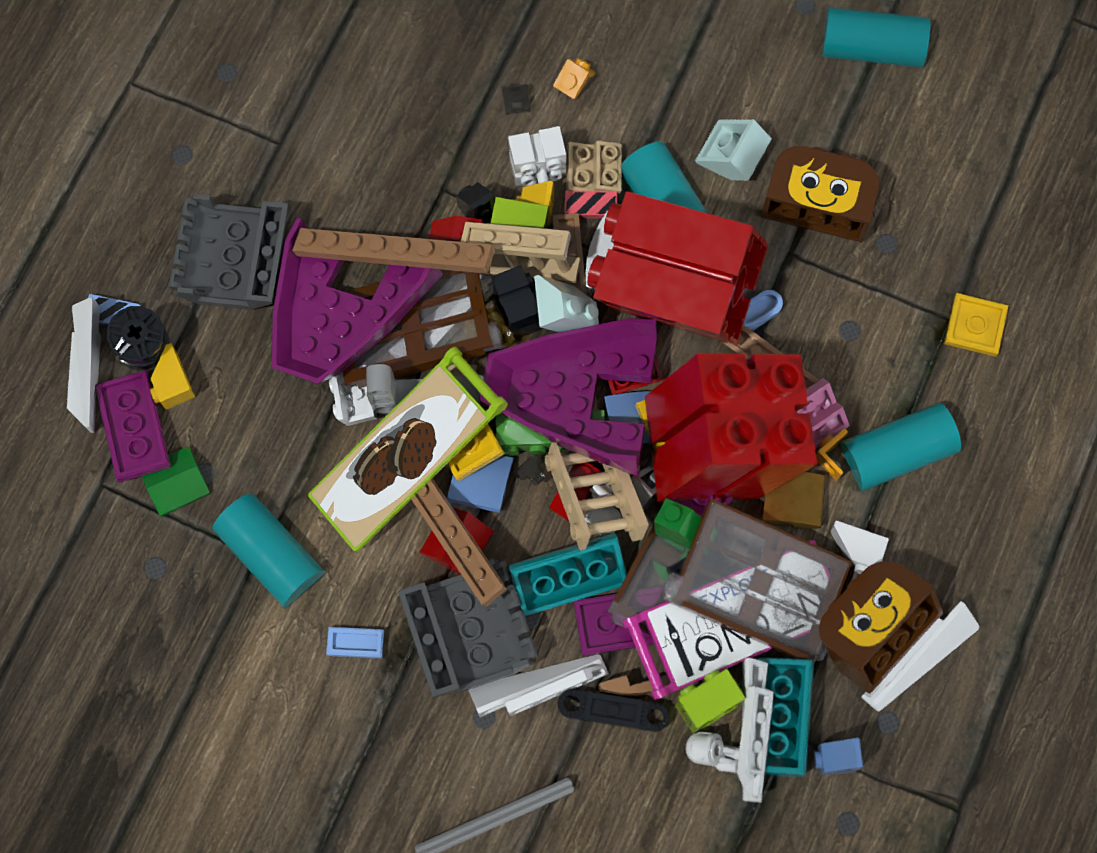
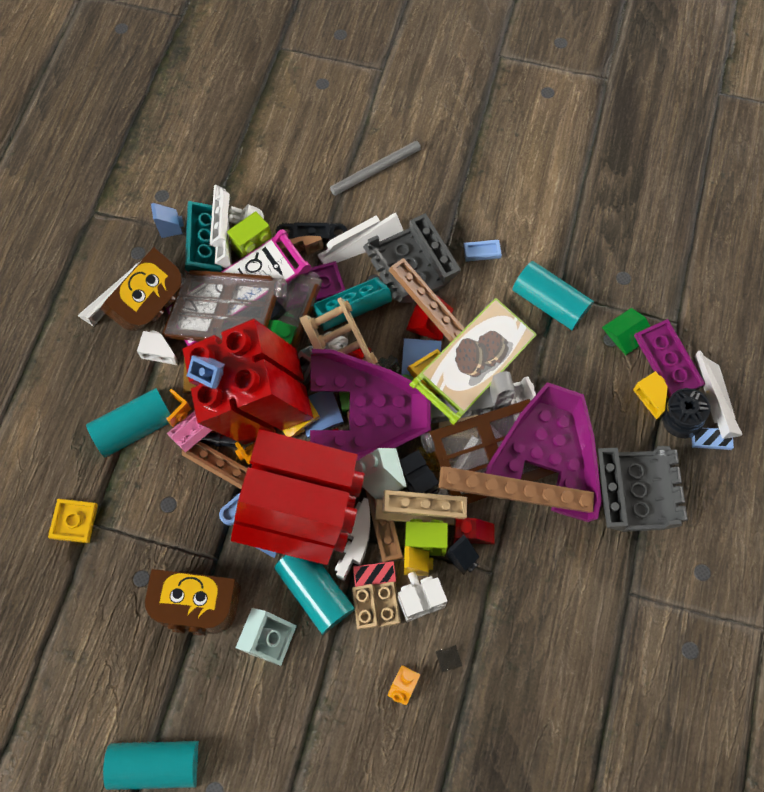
camera: 170 degrees right, 5 degrees down
(781, 392) = (206, 371): none -> medium blue slope

